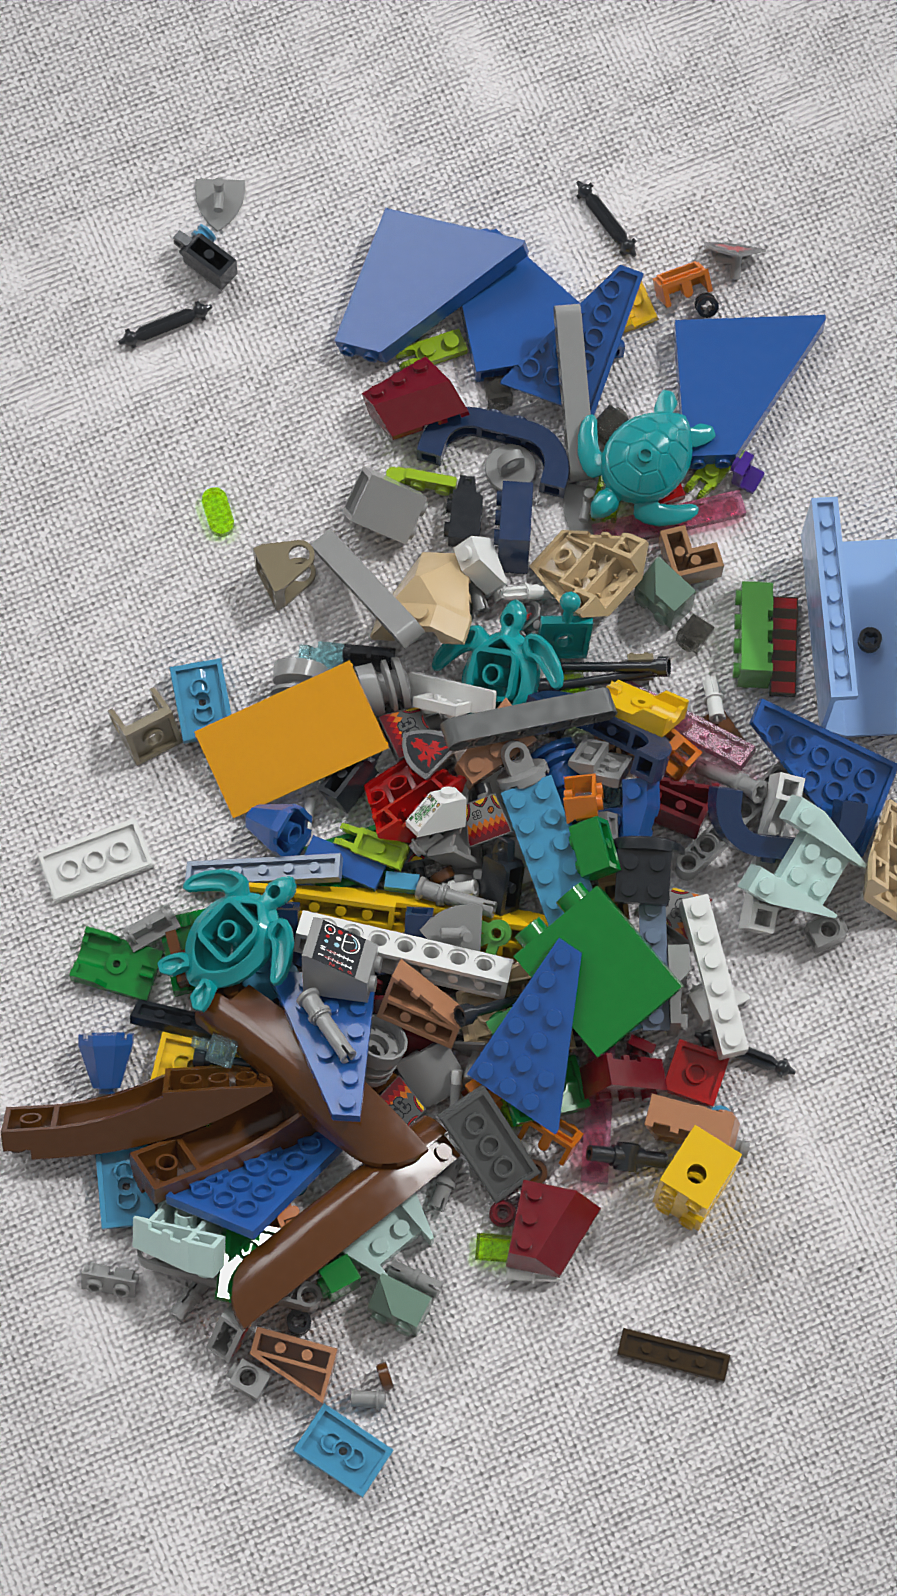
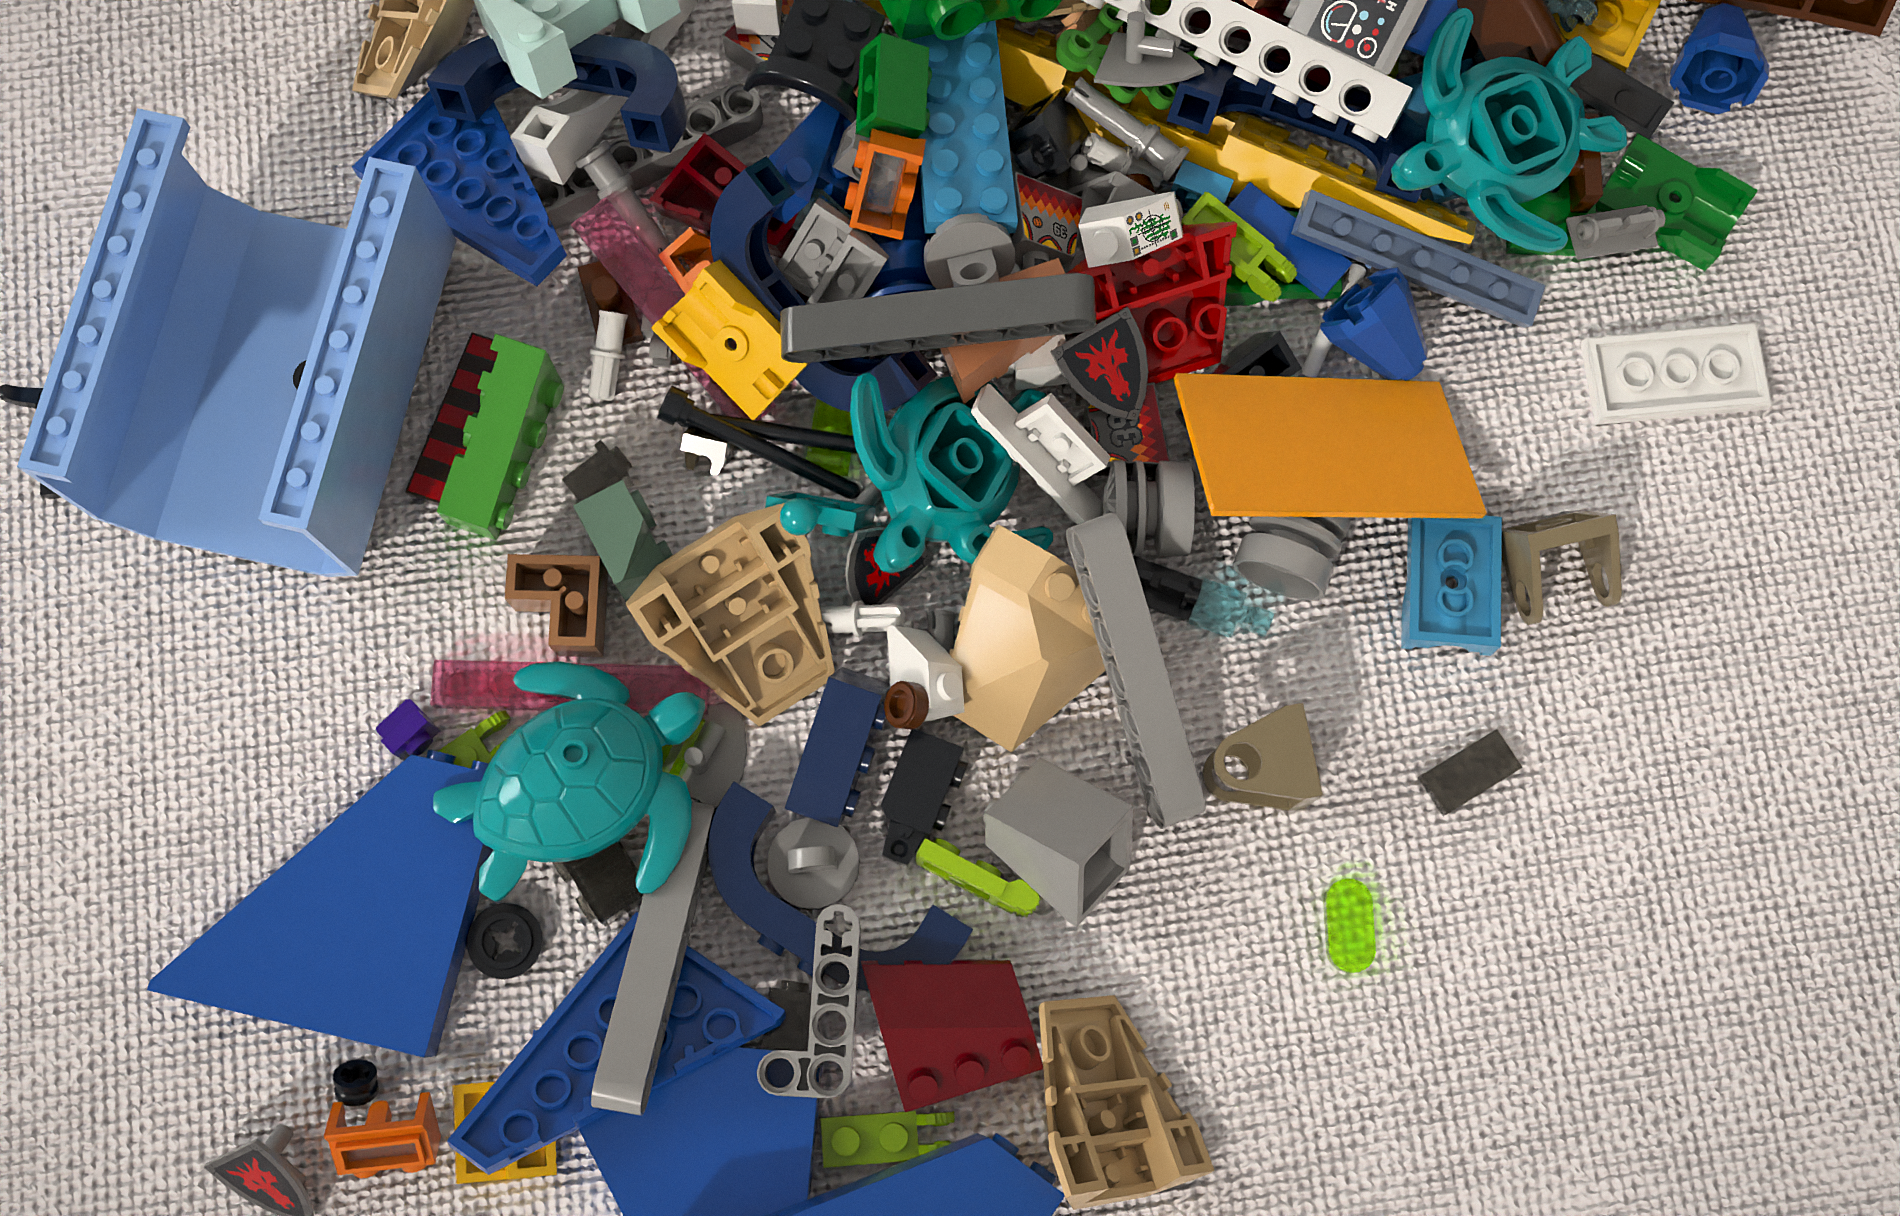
camera: 165 degrees left, 5 degrees up
(169, 606) = (1470, 772): none -> clear smoke tile
(323, 385) = (1108, 1110): none -> tan wedge
(480, 391) = (822, 1002): none -> light grey beam
(484, 537) = (906, 705): none -> reddish brown tile
(650, 381) = (483, 946): none -> black gear

